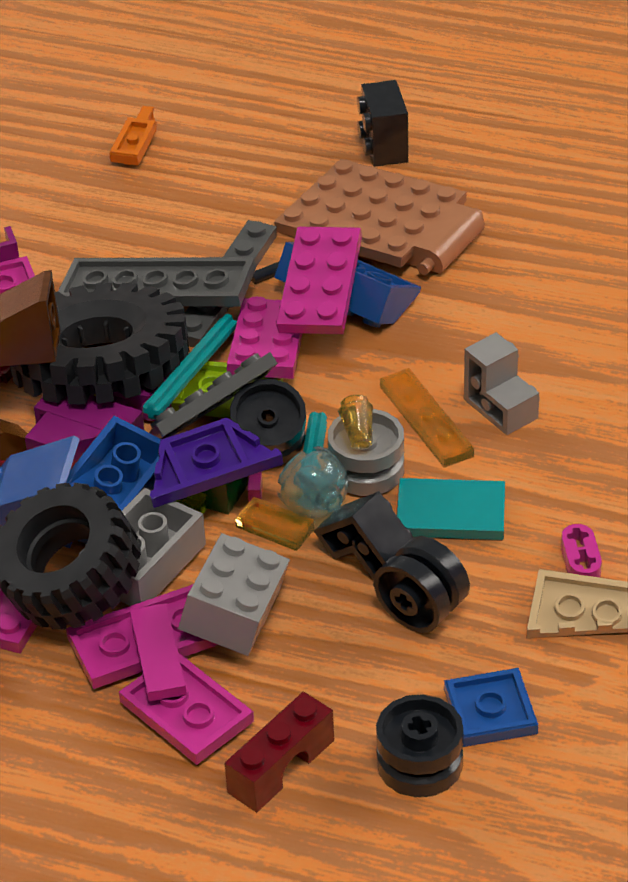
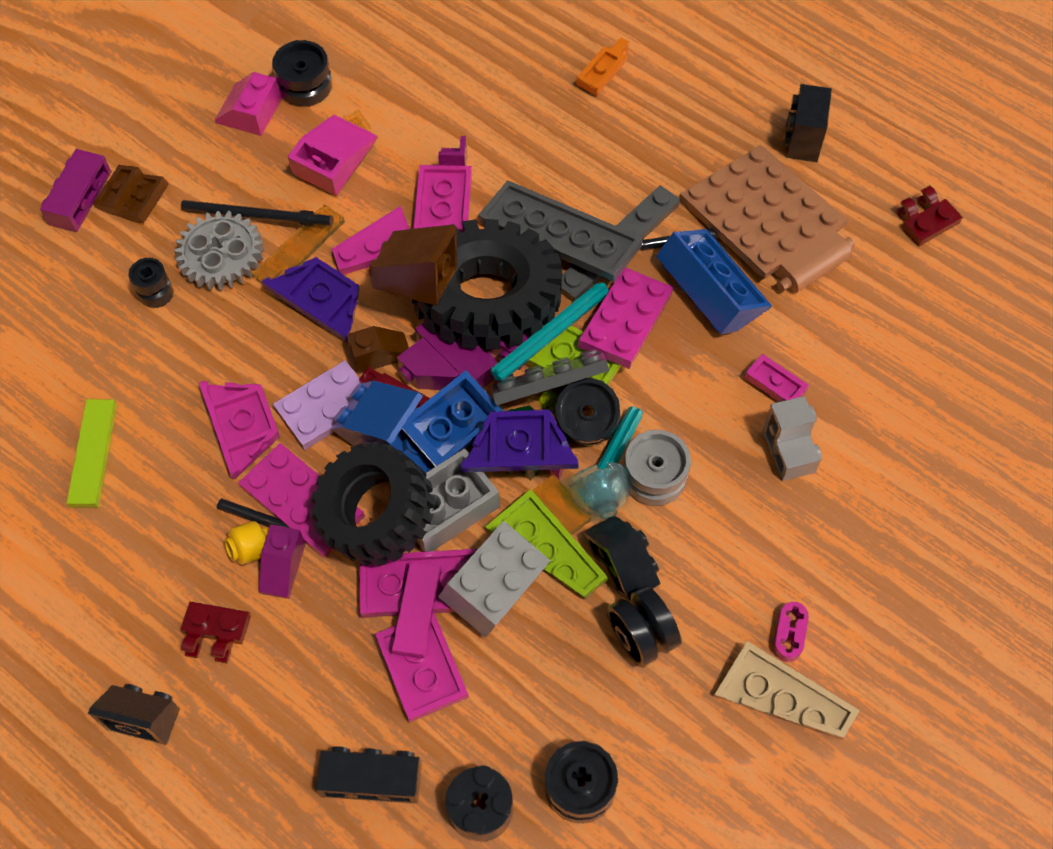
camera: 20 degrees right, 20 degrees up
(175, 822) = (369, 775): none -> black brick
(258, 767) = (487, 732): dark red arch -> none
(310, 564) = (543, 530): none -> lime wing
(315, 802) = (480, 784): none -> black brick
(319, 280) = (684, 283): dark pink plate -> none
(357, 420) = (654, 447): clear yellow cone -> none
(427, 417) = (723, 441): clear yellow tile -> none
(447, 346) = (775, 380): none -> dark pink plate
(452, 508) = (705, 544): teal tile -> none
(492, 706) = (656, 757): blue tile -> none
(553, 176) = (930, 223): none -> dark red plate

